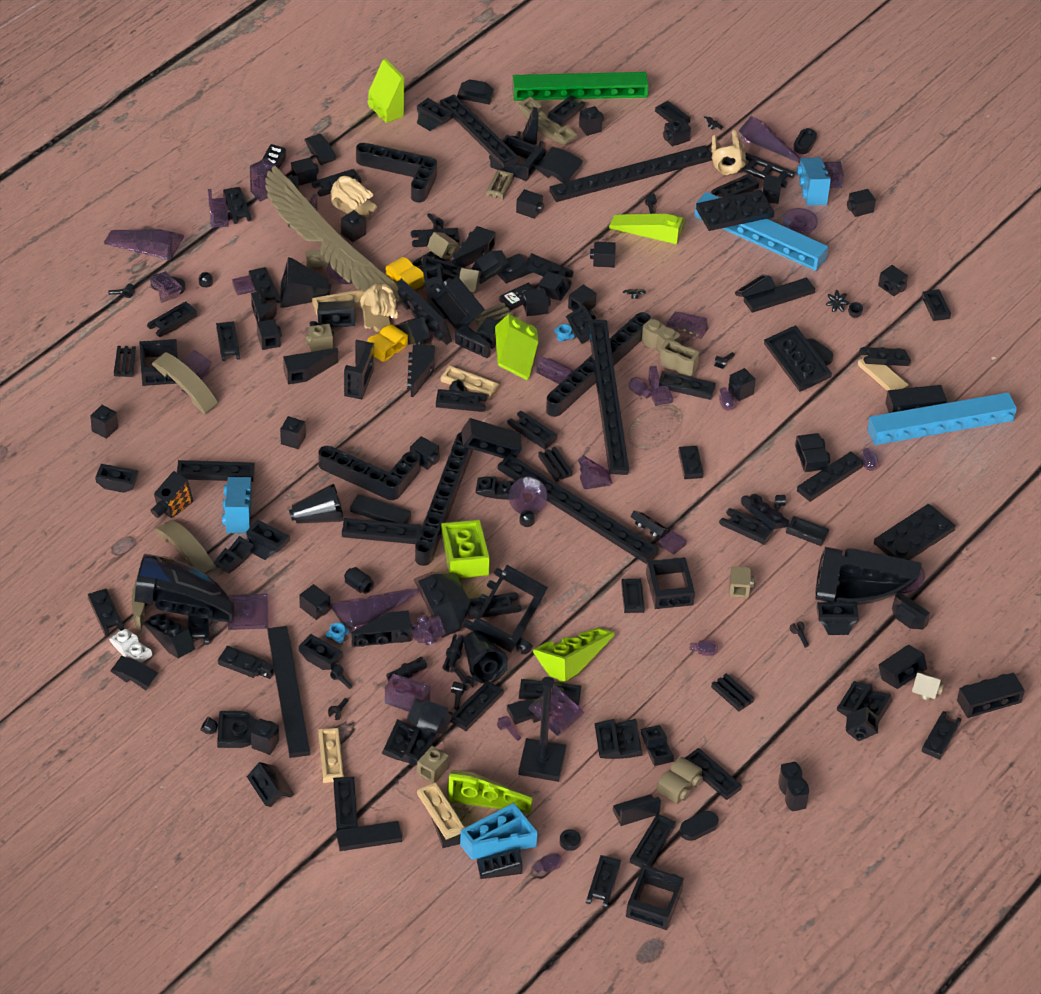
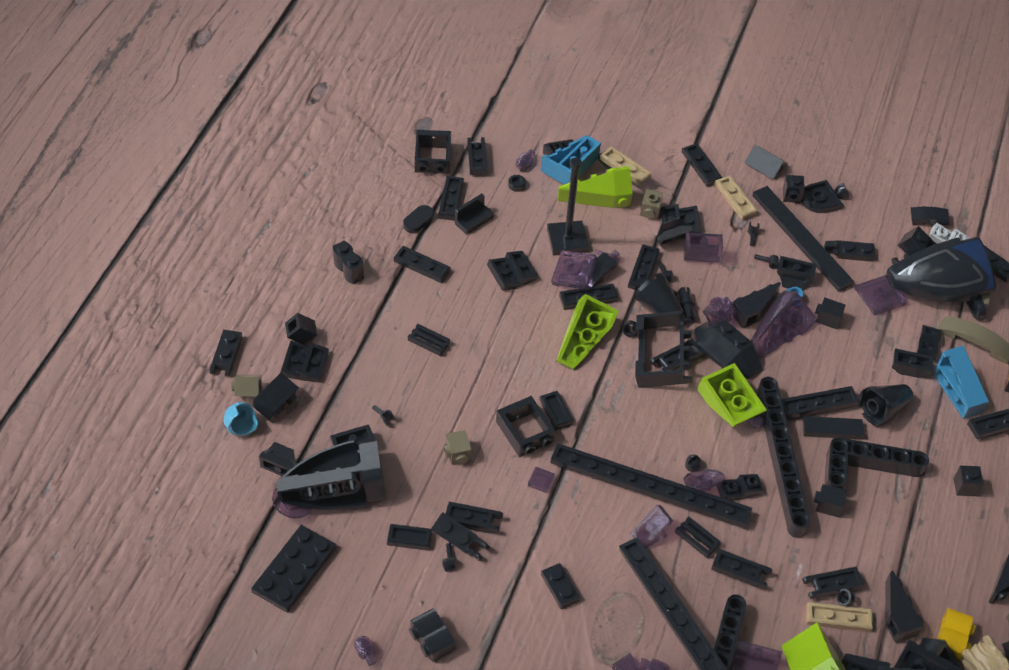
camera: 160 degrees right, 5 degrees up
(354, 379) = (949, 556): black panel -> none
(358, 580) = (807, 344): black brick -> none
(368, 836) = (669, 146): black tile -> none
(407, 670) = (717, 278): black pin -> none
(491, 439) = (772, 523): black brick -> none
(643, 521) = (570, 487): black plate -> none
(656, 745) = (478, 275): black slope -> none
(679, 780) = (446, 244): dark tan brick -> none
(705, 647) = (468, 373): clear purple cylinder -> none
(830, 476) = (399, 621): black plate -> none
(943, 659) = (240, 419): none -> medium azure hair
(990, 695) = (184, 397): black brick -> none

